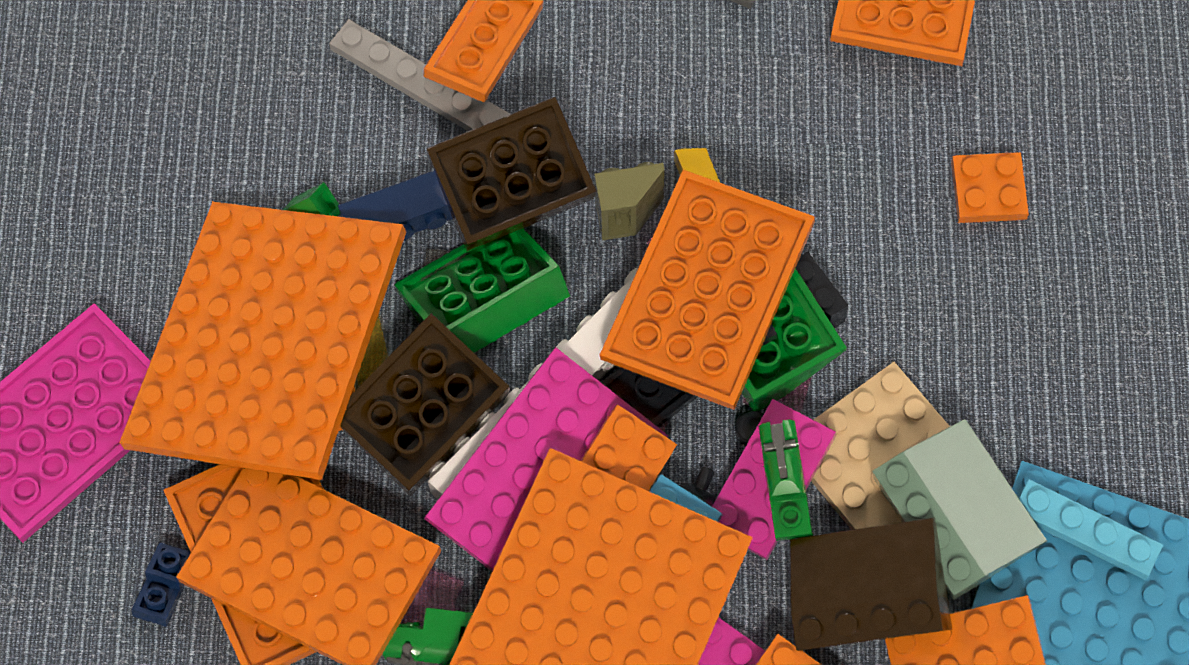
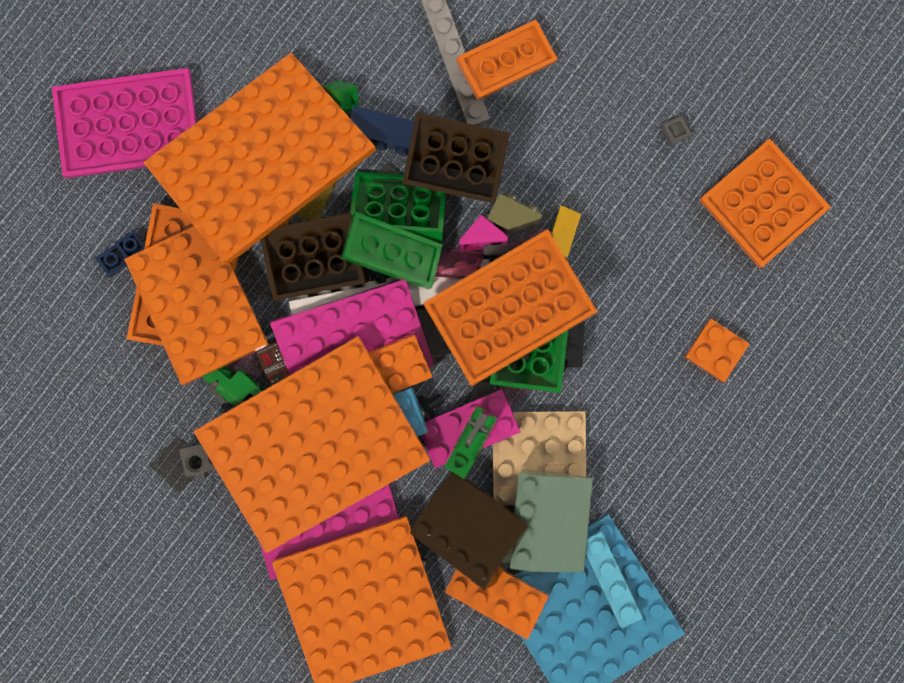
camera: 35 degrees right, 20 degrees up
(460, 574) = (272, 363): none -> slope
(515, 324) = (392, 251): none -> green plate
(604, 295) = (458, 263): none -> clear pink piece
(612, 243) = (482, 234): none -> dark pink slope
(633, 255) = (494, 250): none -> dark grey tile

